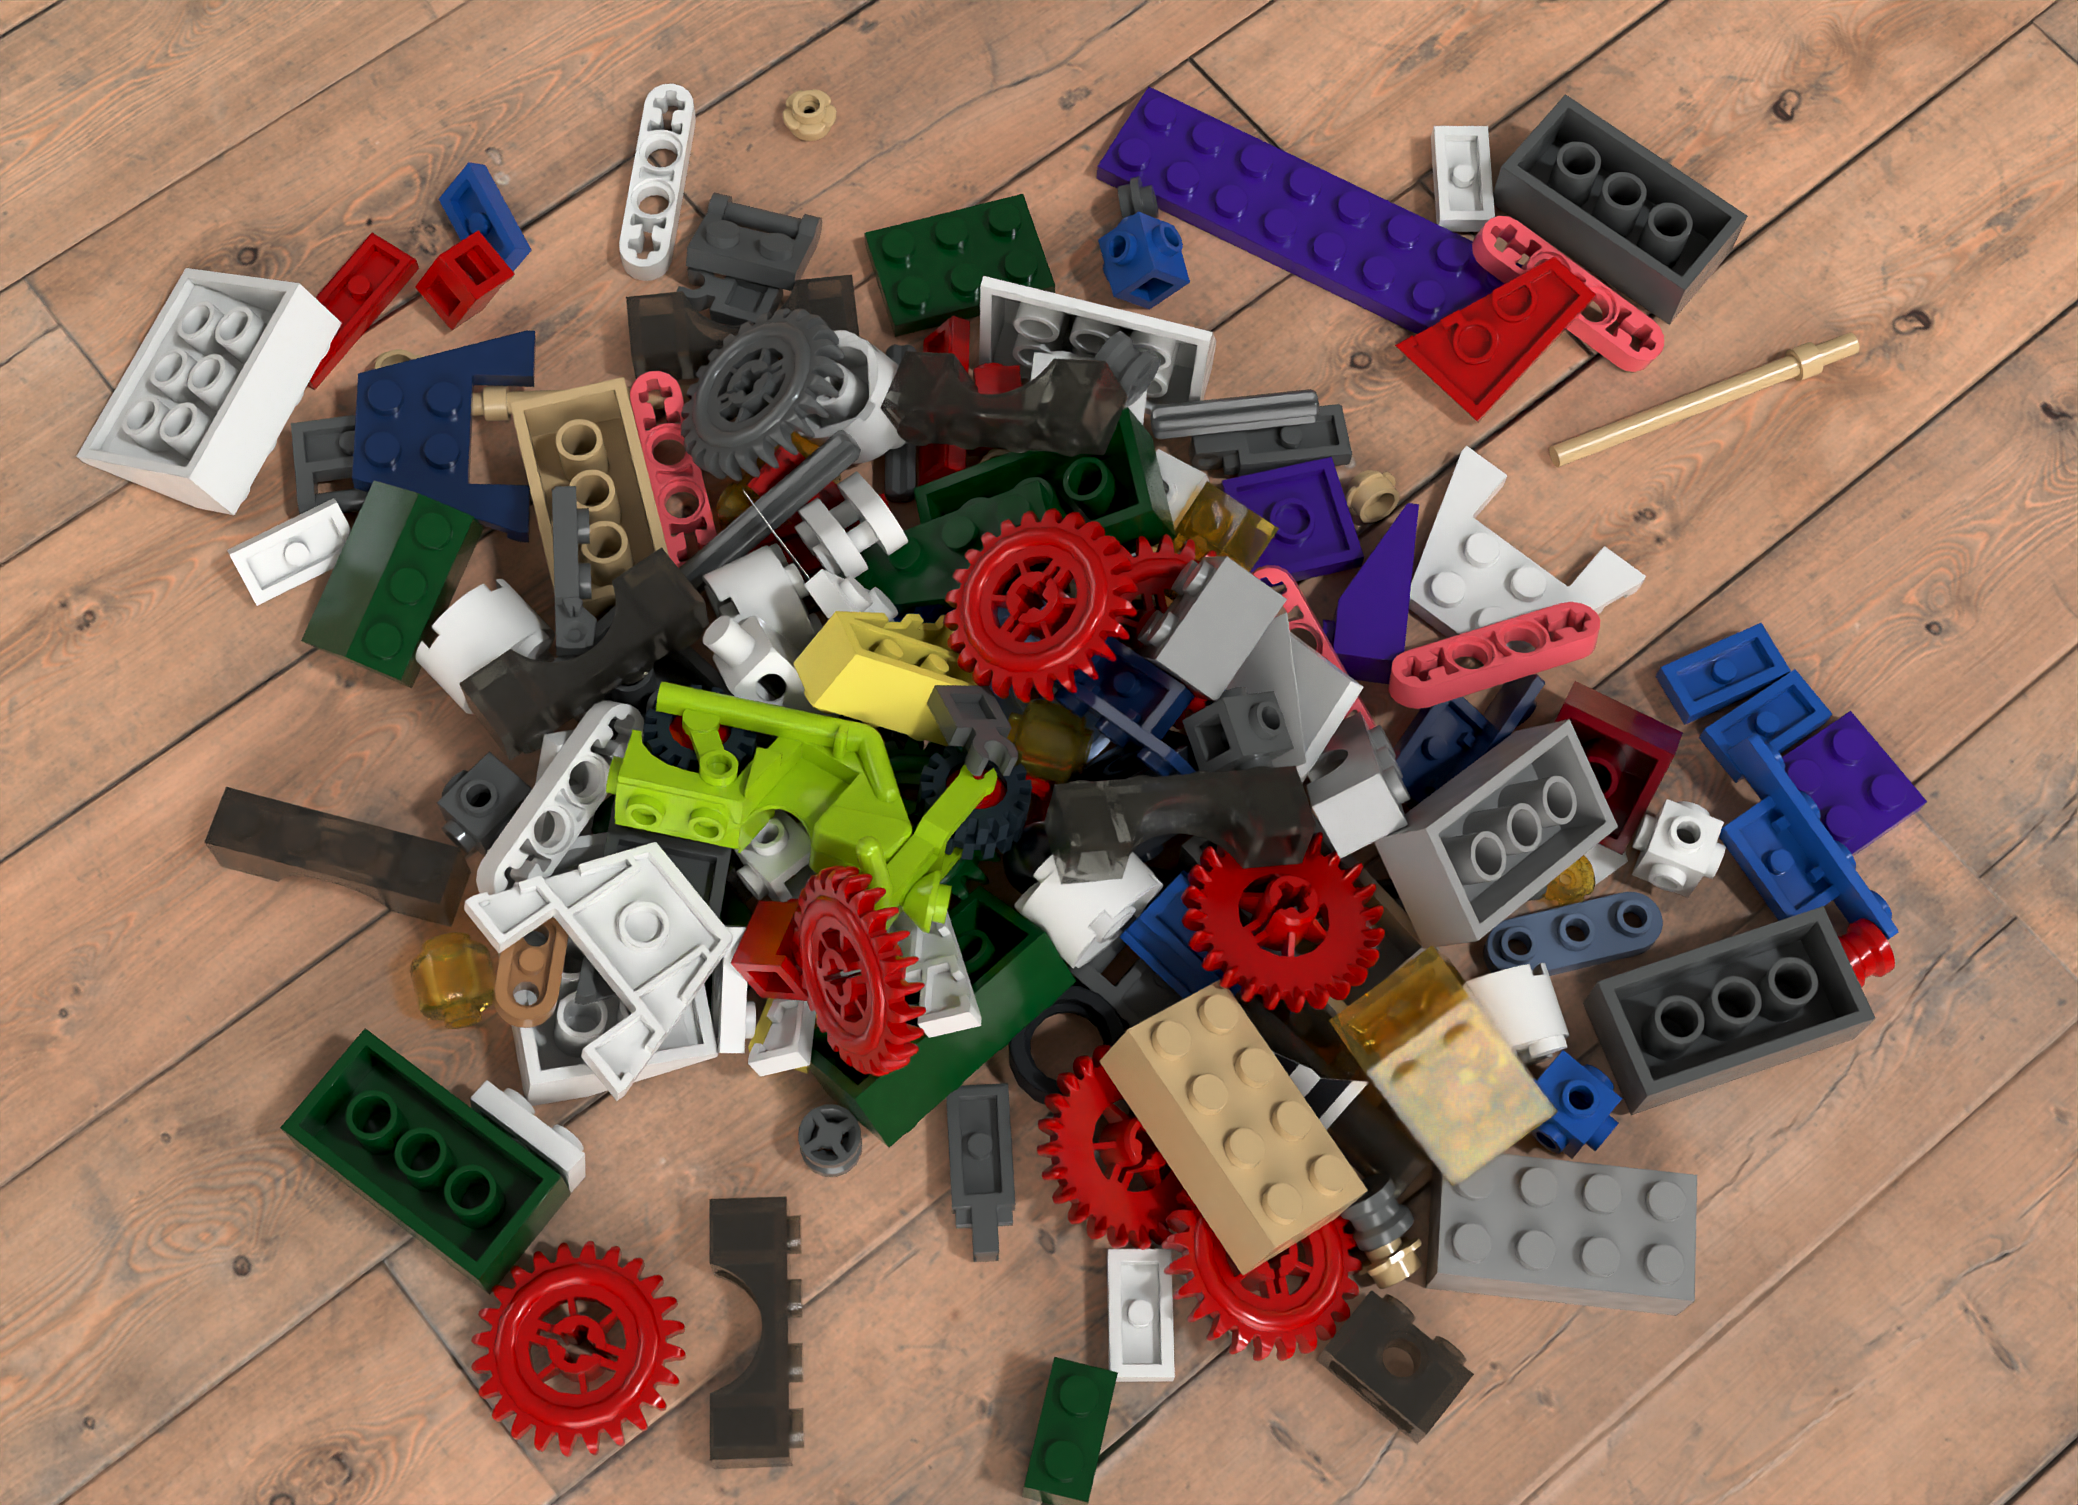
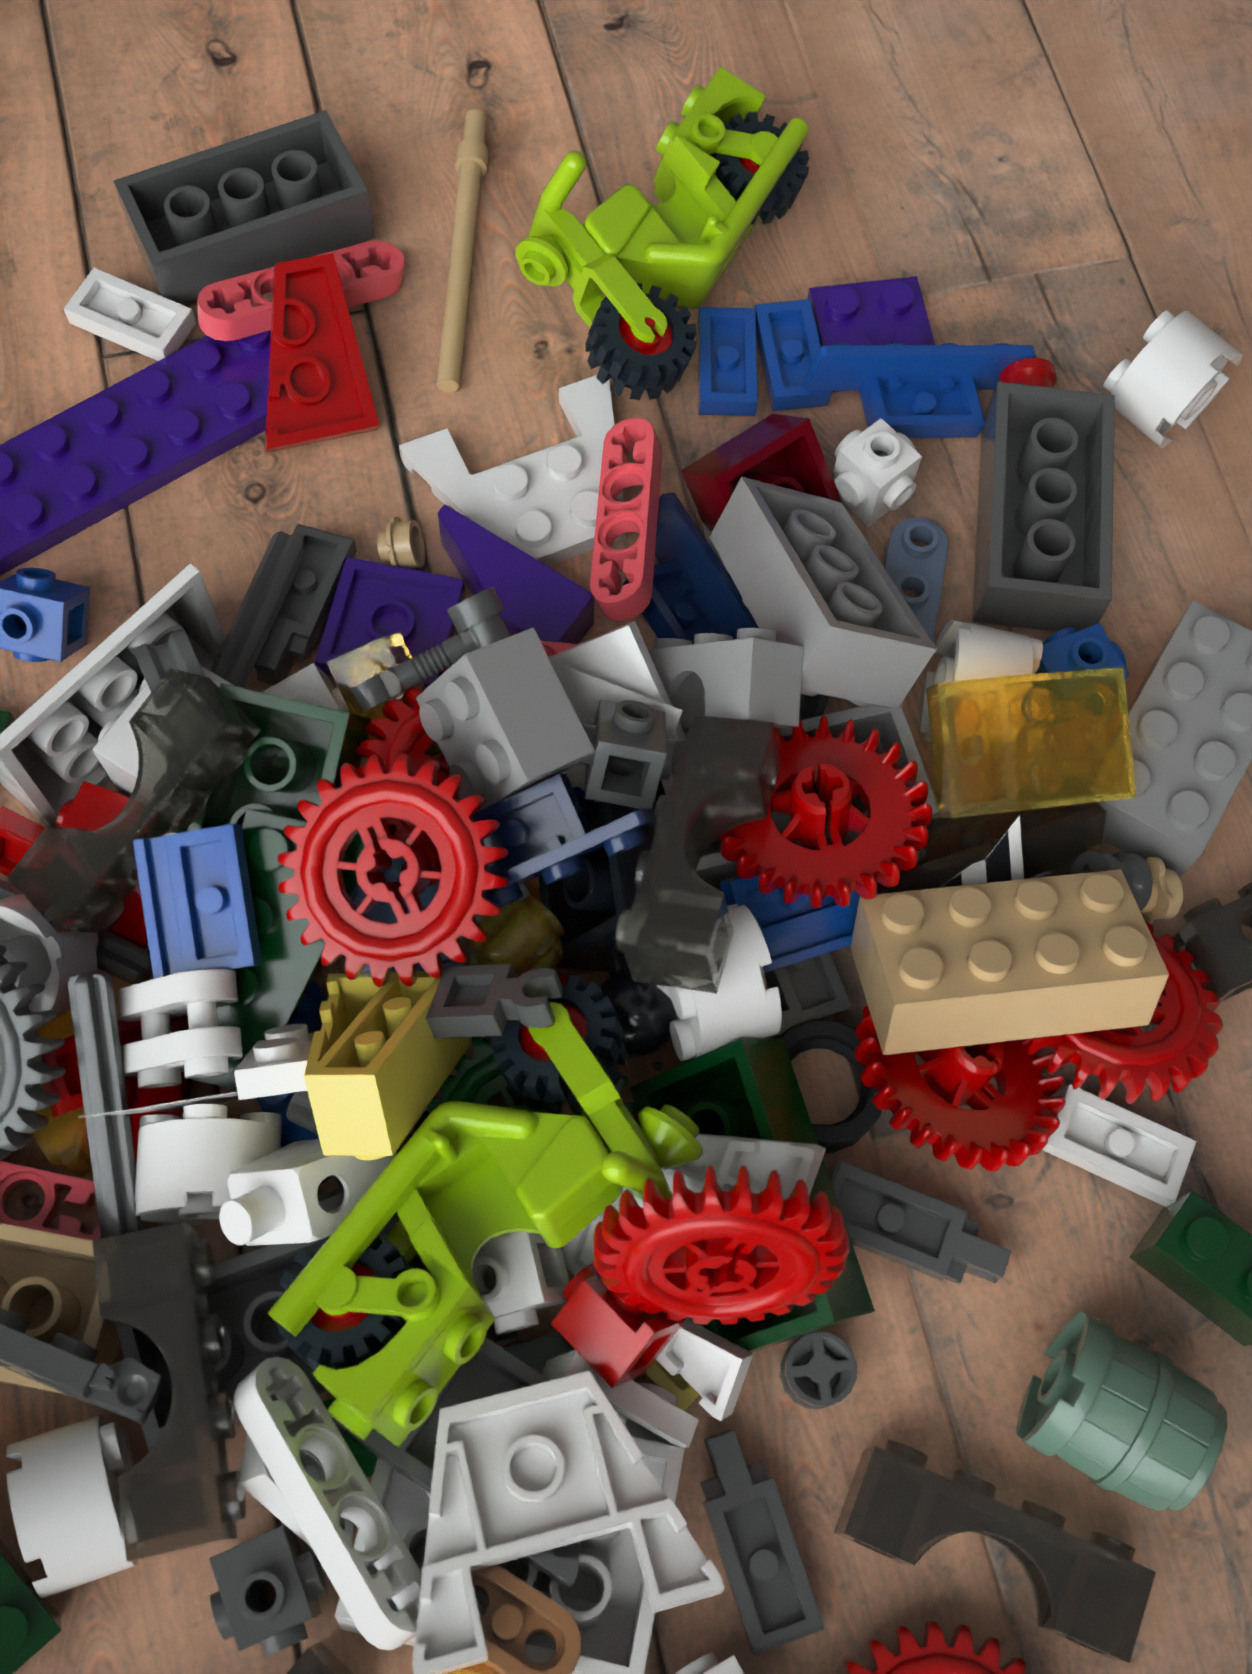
camera: 65 degrees left, 0 degrees up
(674, 1149) = (757, 1548): none -> dark grey hinge
(902, 1386) = (1123, 1416): none -> sand green piece
(945, 484) = (197, 901): none -> plate
(1288, 575) = (477, 625): none -> dark grey brick
(1806, 571) = (648, 258): none -> lime piece
(1944, 1072) = (1171, 375): none -> white brick

